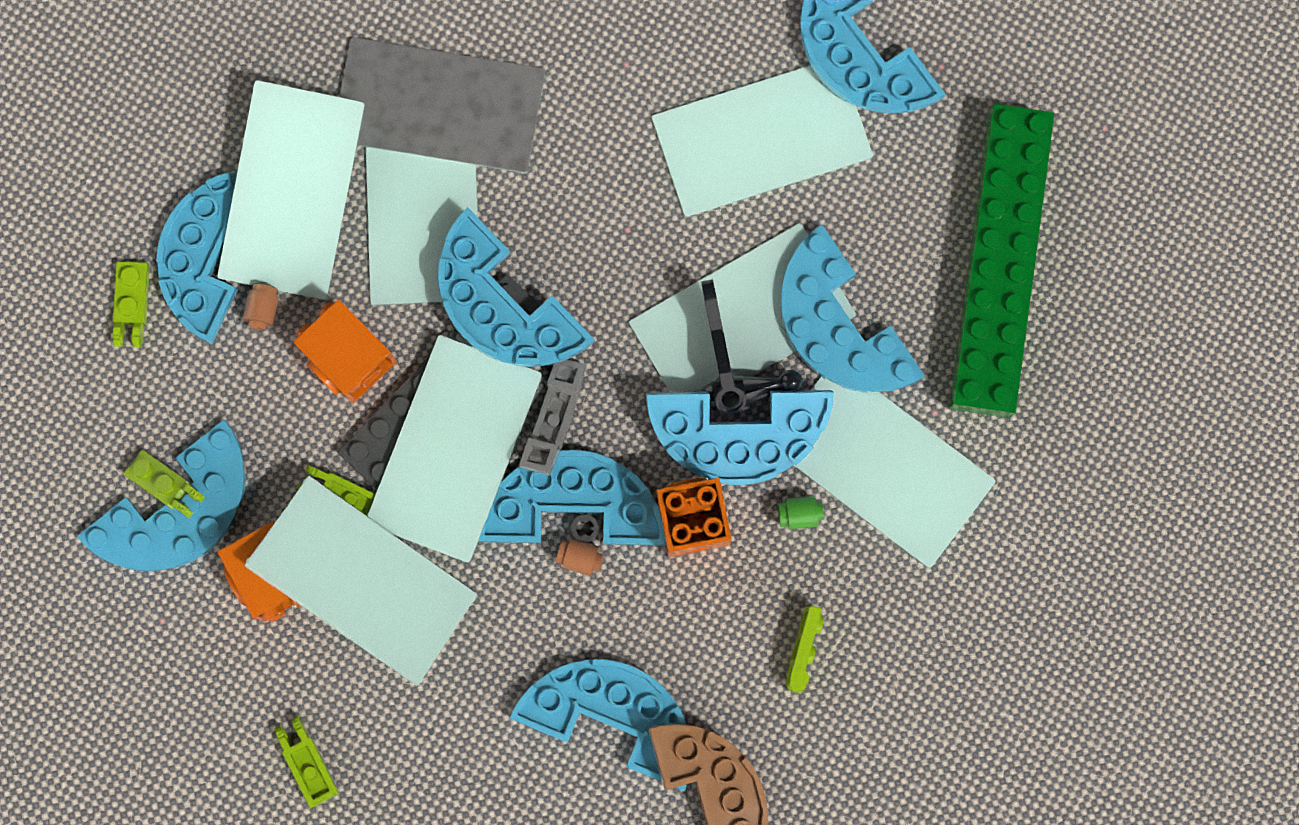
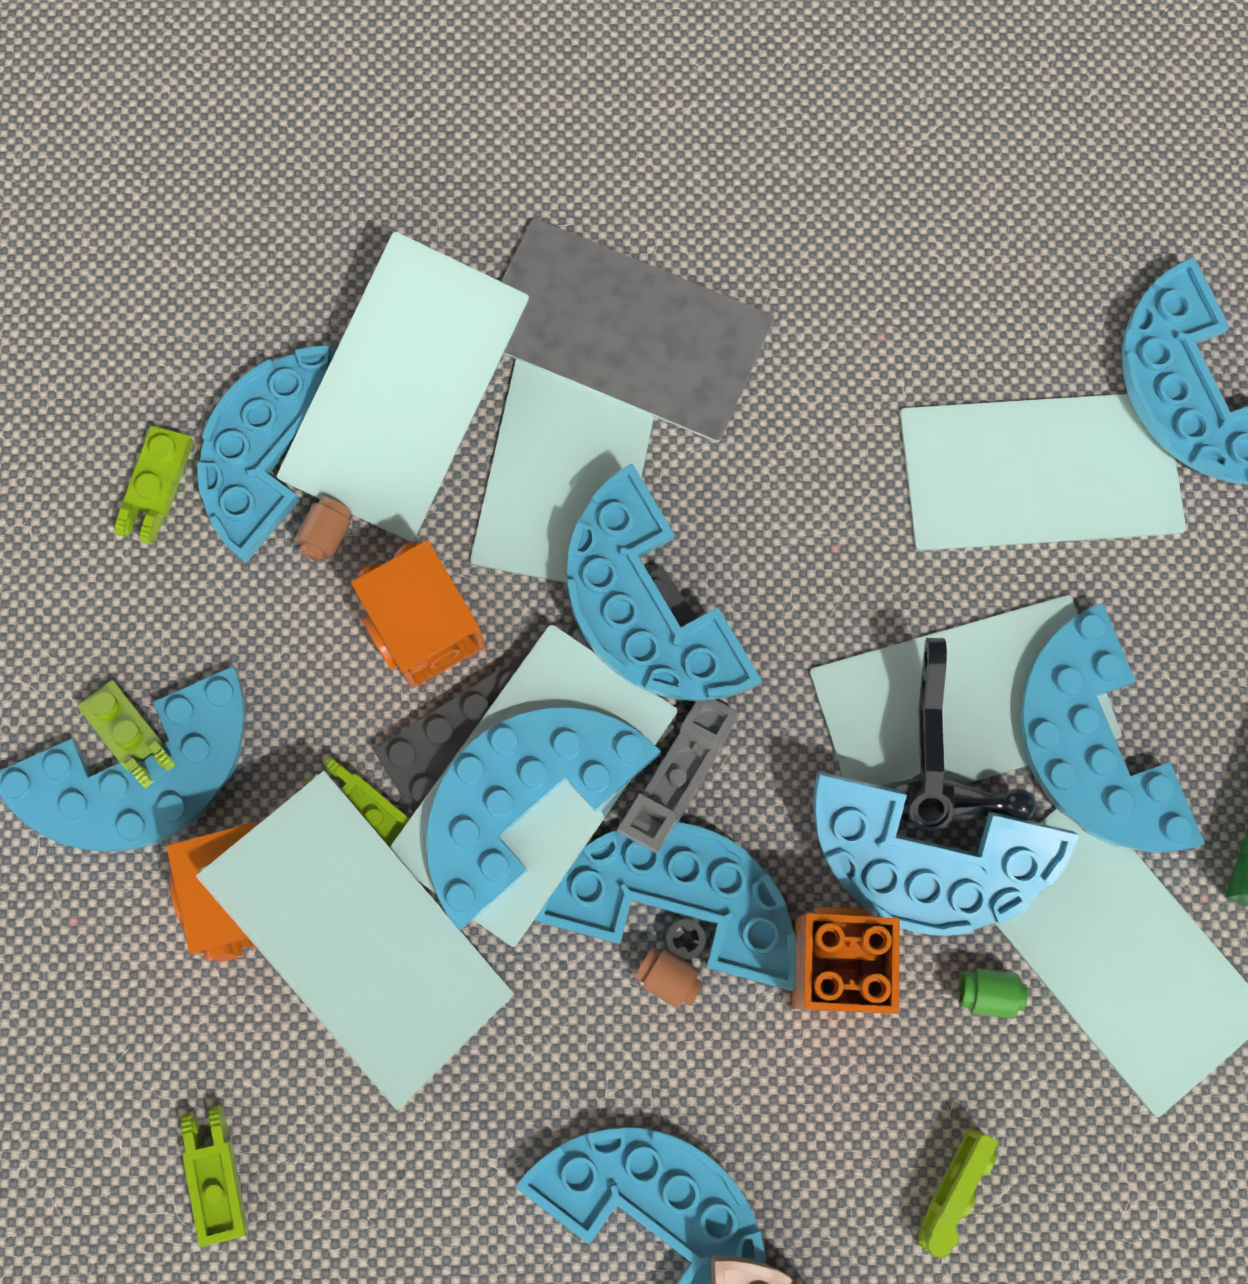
camera: 10 degrees right, 5 degrees down
(434, 449) = (507, 776): none -> medium azure plate

